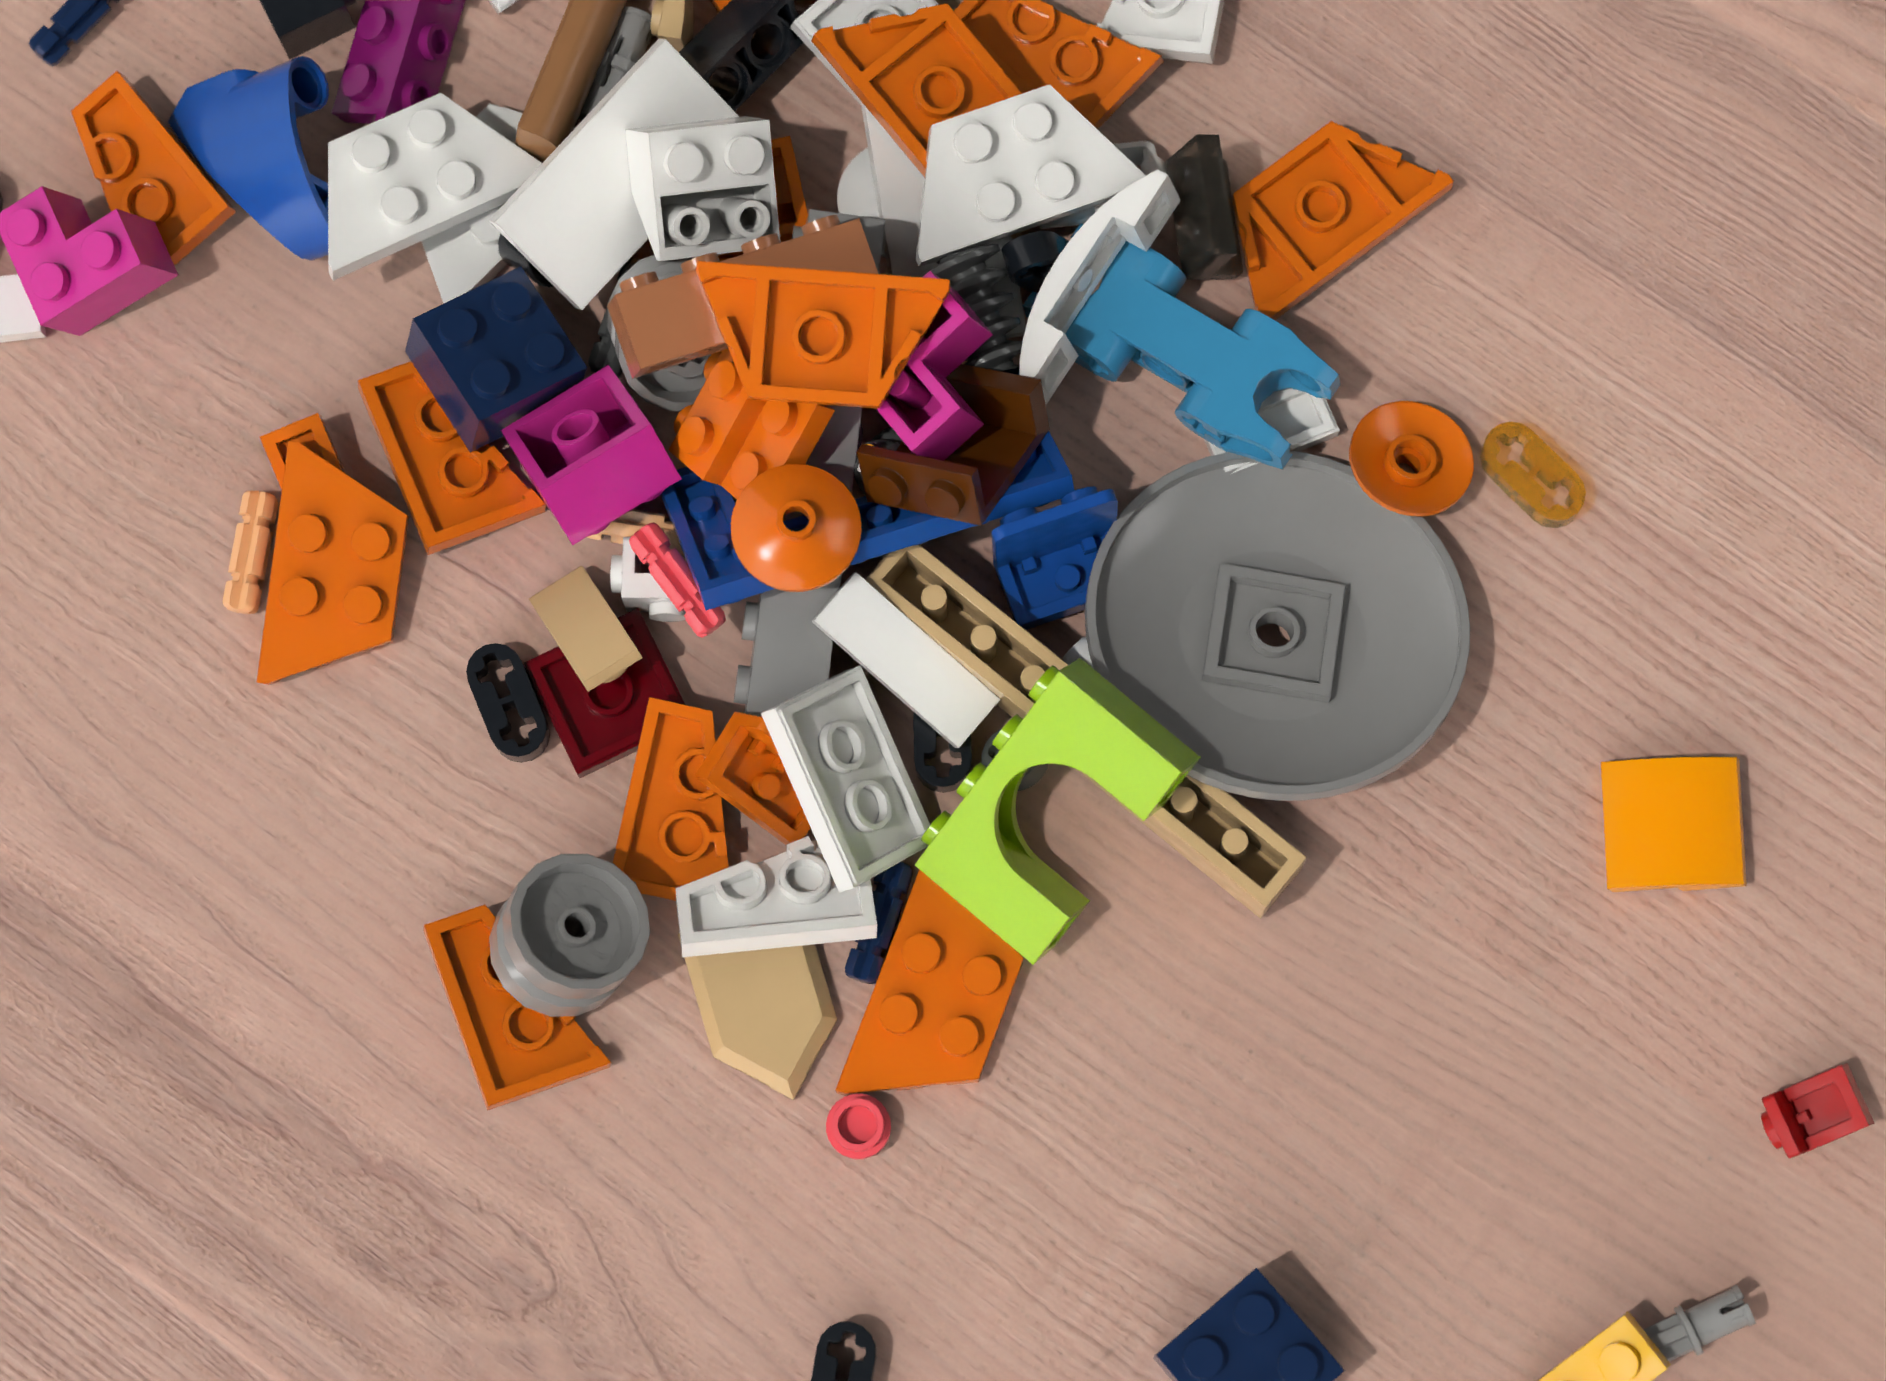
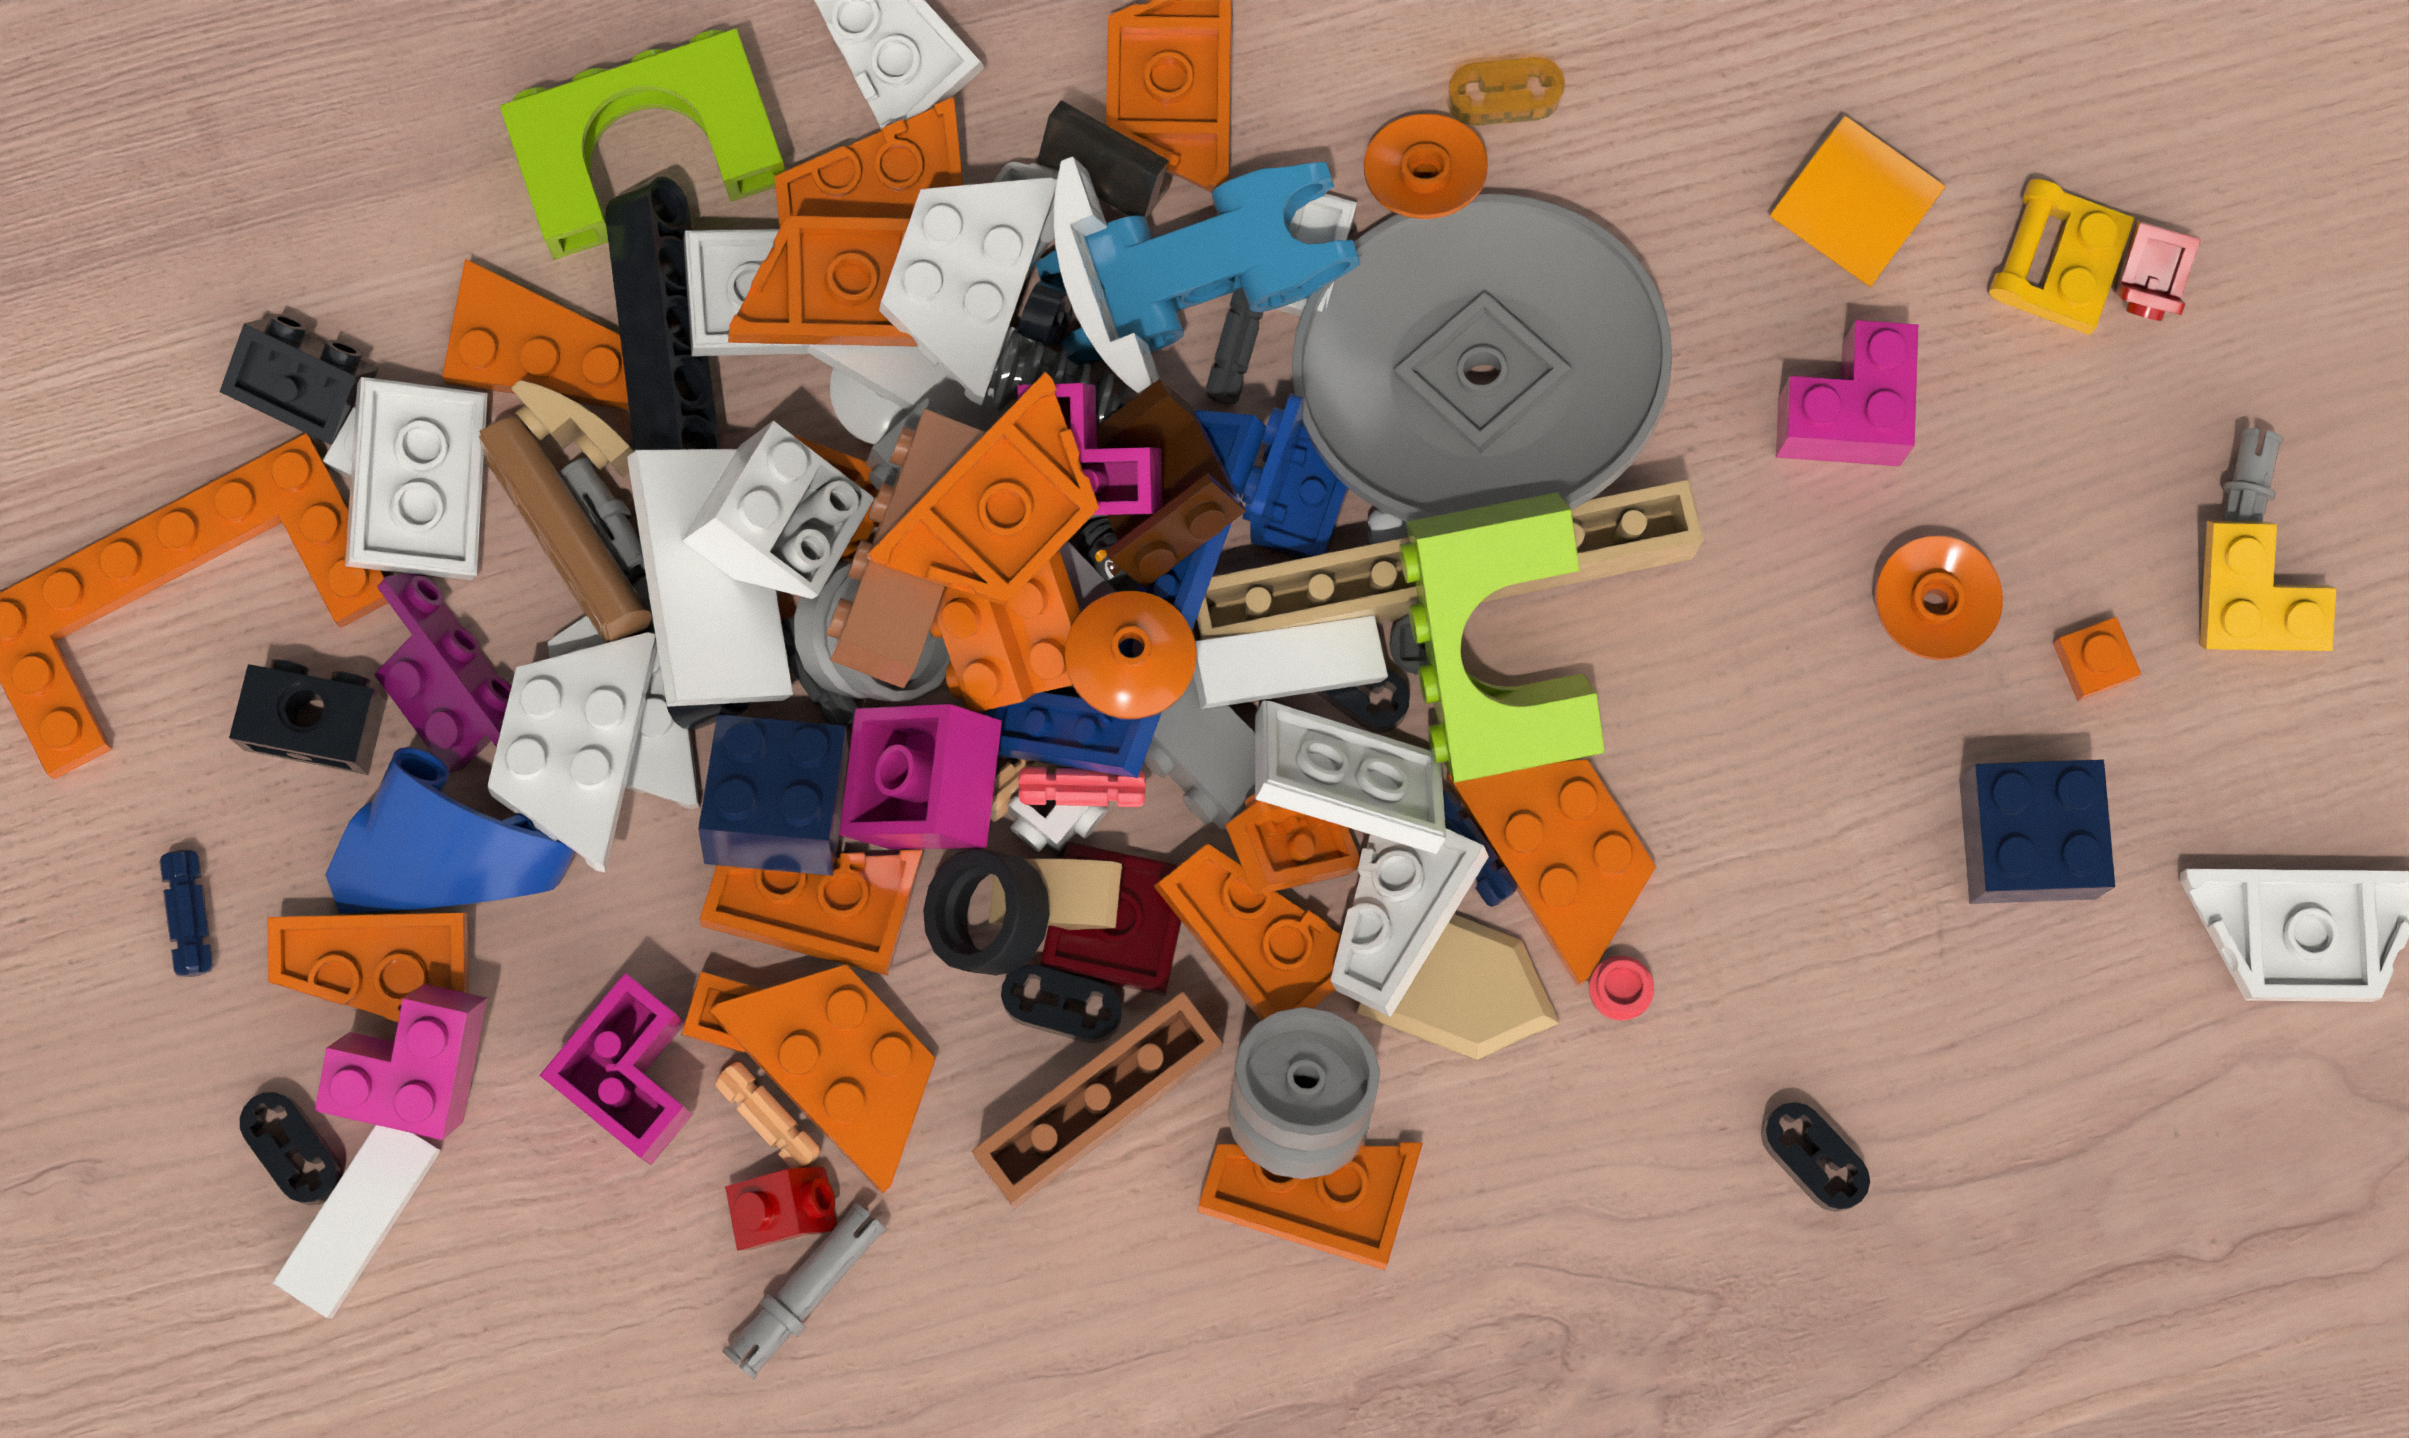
camera: 60 degrees left, 0 degrees up
(136, 682) = (803, 1291): none -> light grey pin
(186, 404) = (606, 1065): none -> dark pink brick
(189, 616) = (781, 1207): none -> red bracket
(444, 785) = (1098, 1100): none -> nougat brick
(548, 608) = (949, 901): none -> black tyre
(1135, 432) = (1233, 351): none -> dark grey axle
(1411, 1118) = (1955, 574): none -> orange dish
(1442, 1309) = (2097, 658): none -> orange plate
(1492, 964) = (1863, 414): none -> dark pink brick
(1772, 1047) = (2081, 262): none -> yellow plate

